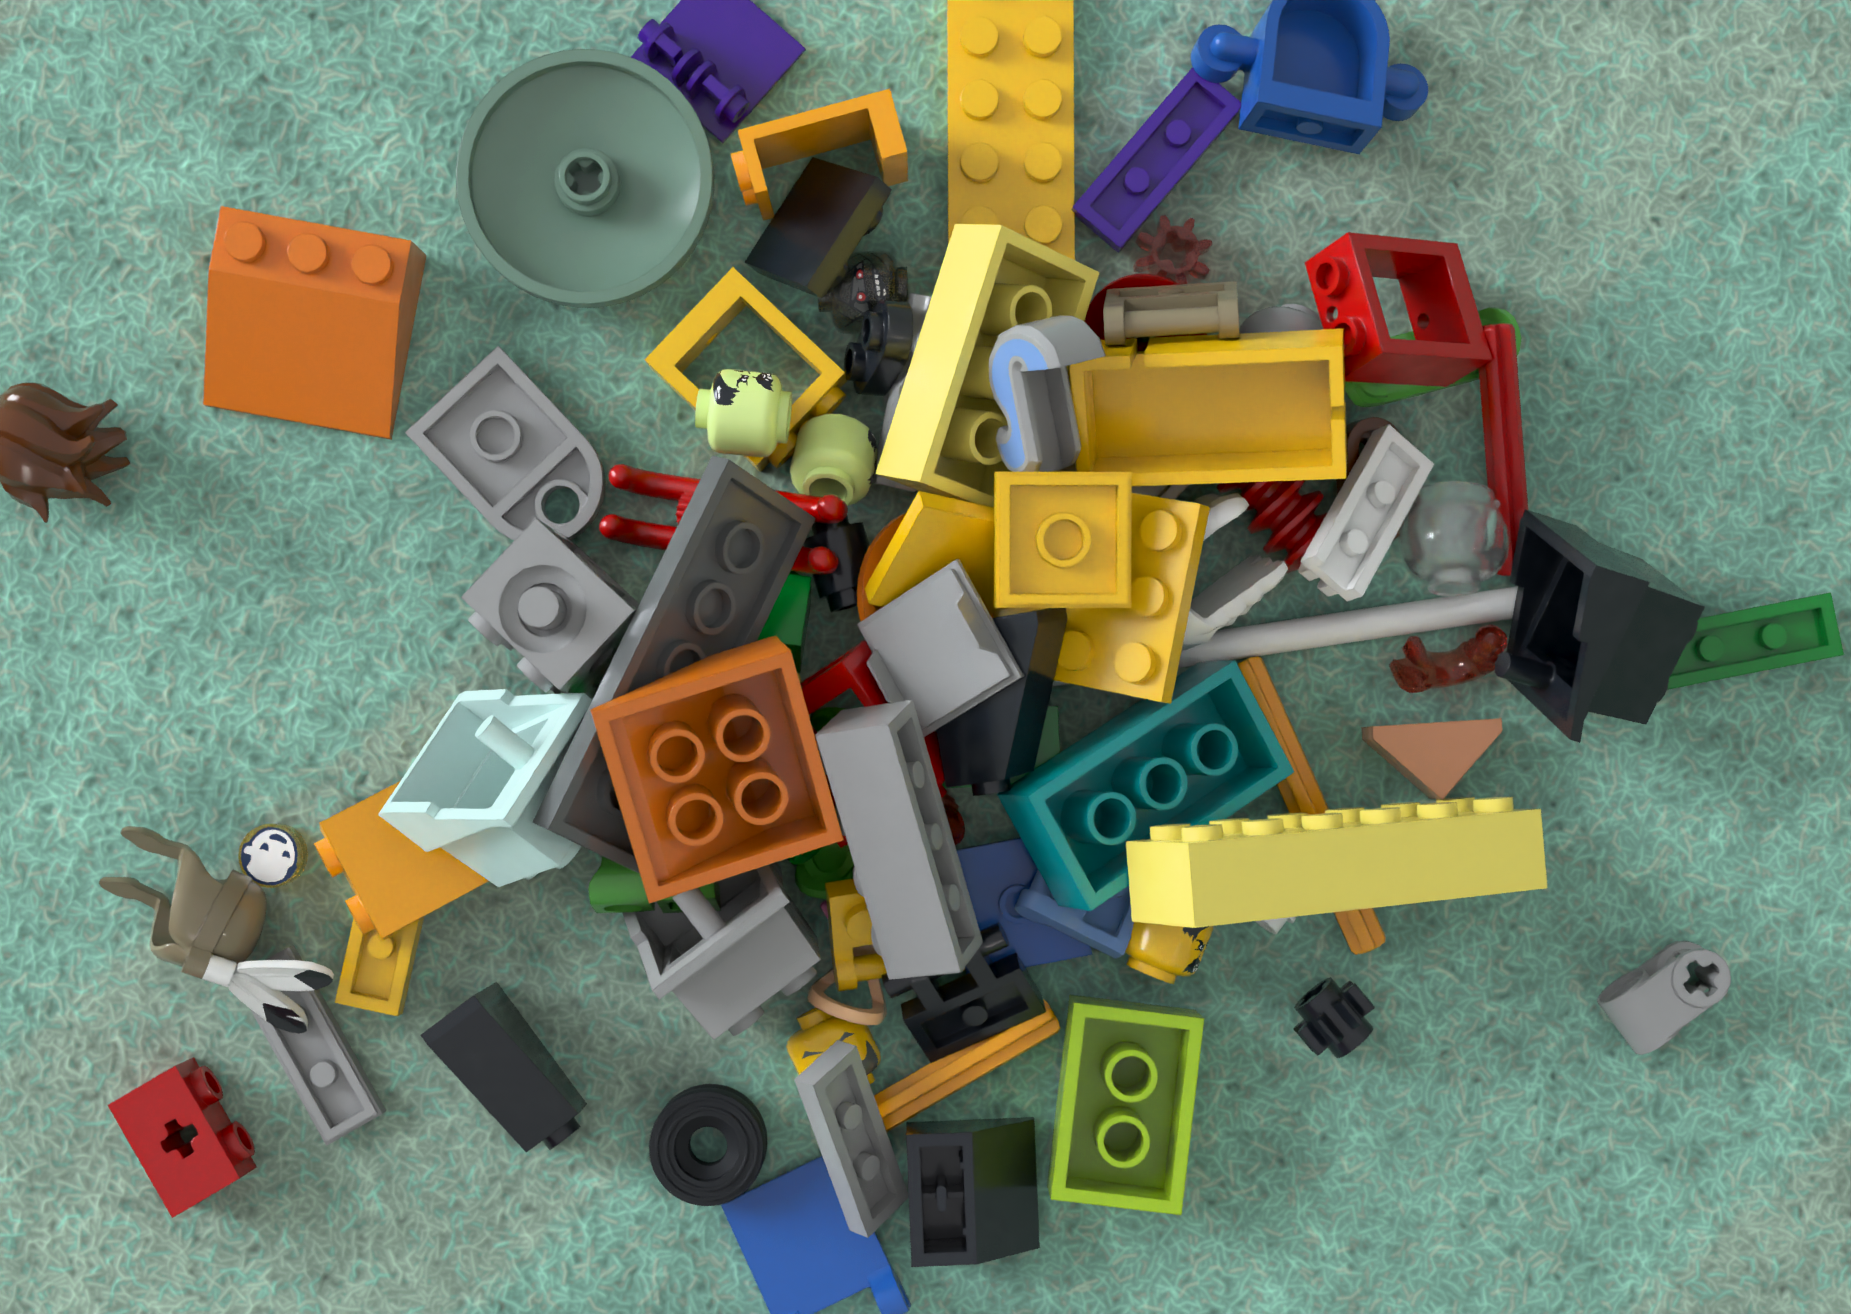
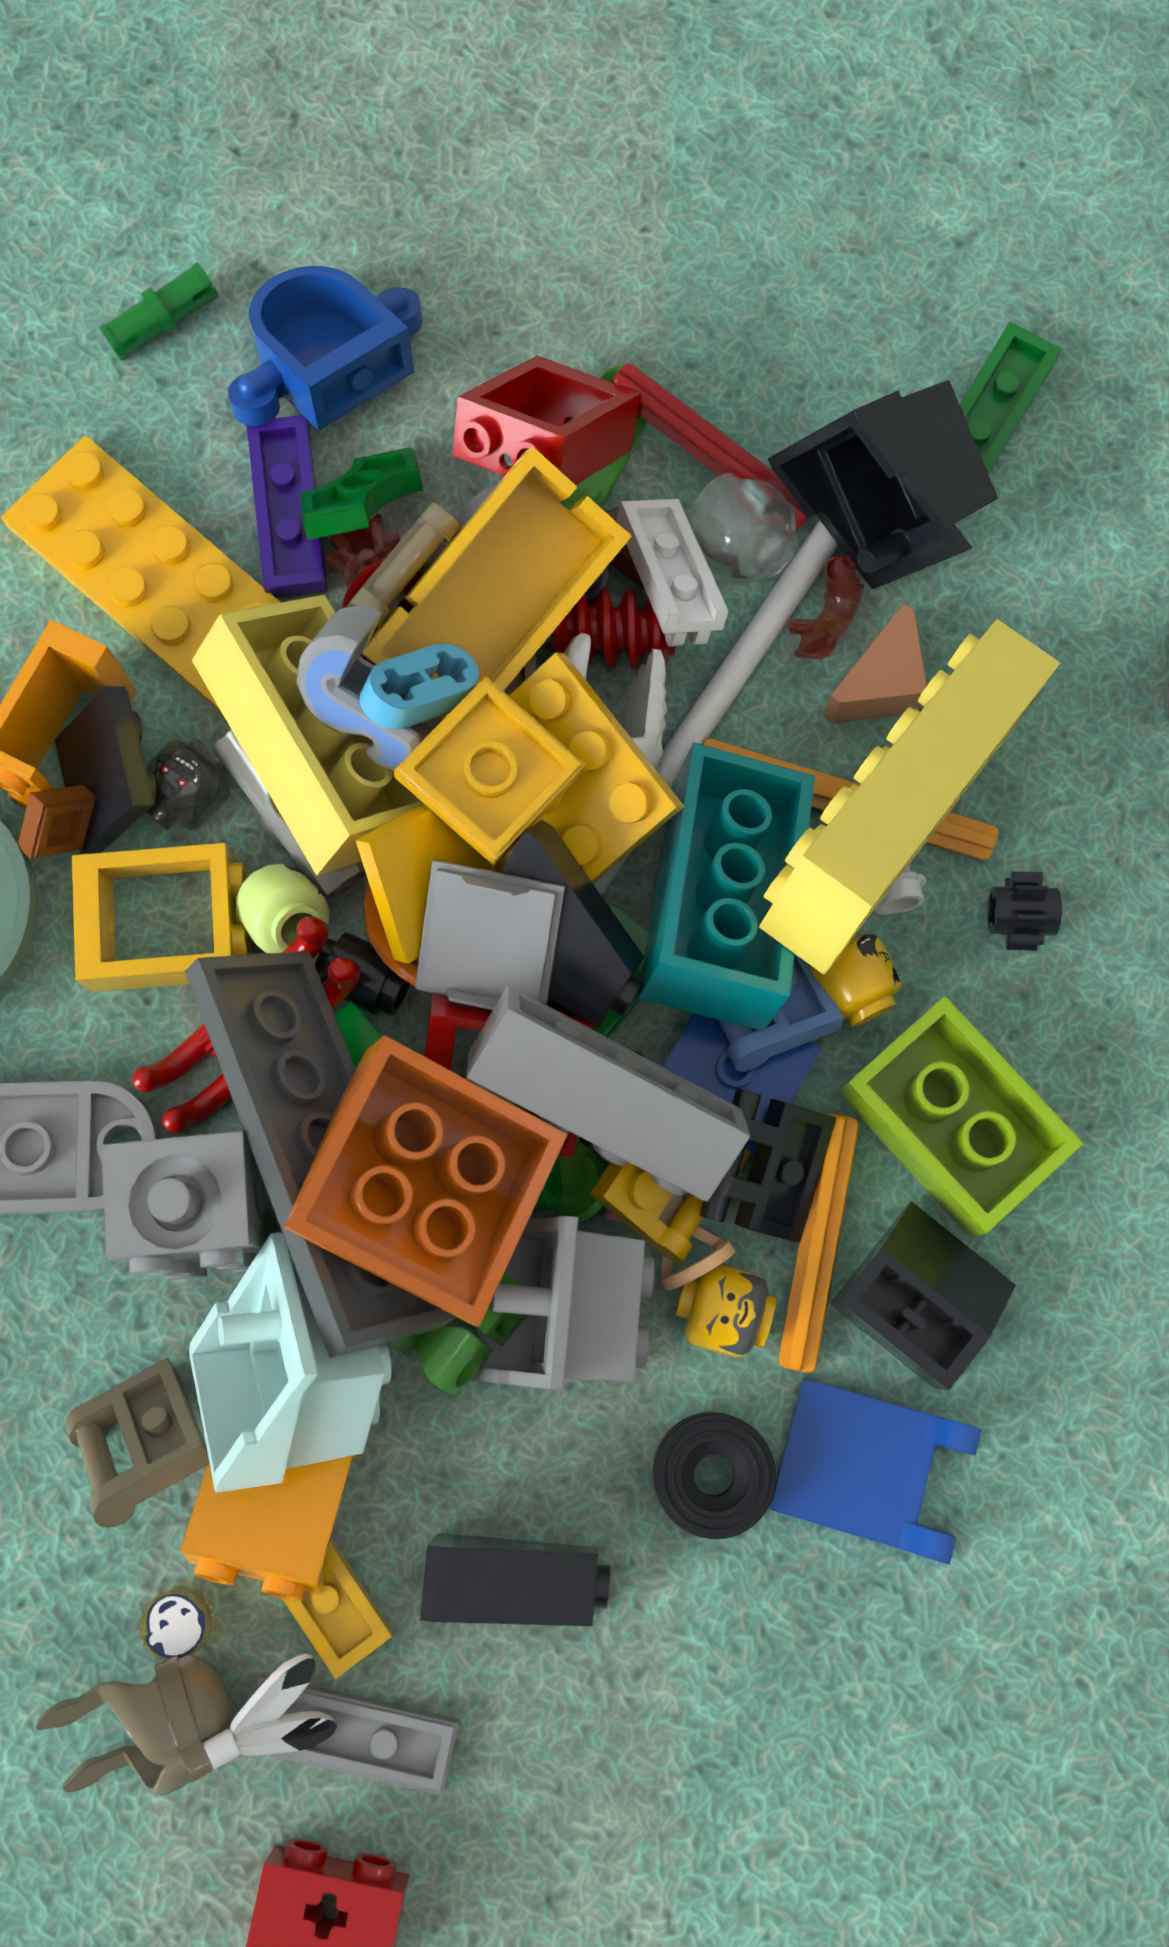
camera: 45 degrees left, 10 degrees down
(385, 725) = (157, 1433): none -> dark tan plate
(744, 413) = (179, 930): yellowish green head -> none
(748, 229) = (56, 821): none -> dark orange tile
(852, 1138) = (806, 1348): light grey plate -> none
(880, 348) = (232, 801): black plate -> none
(1076, 441) = (413, 674): none -> medium azure beam
(1203, 211) = (359, 493): none -> green tile

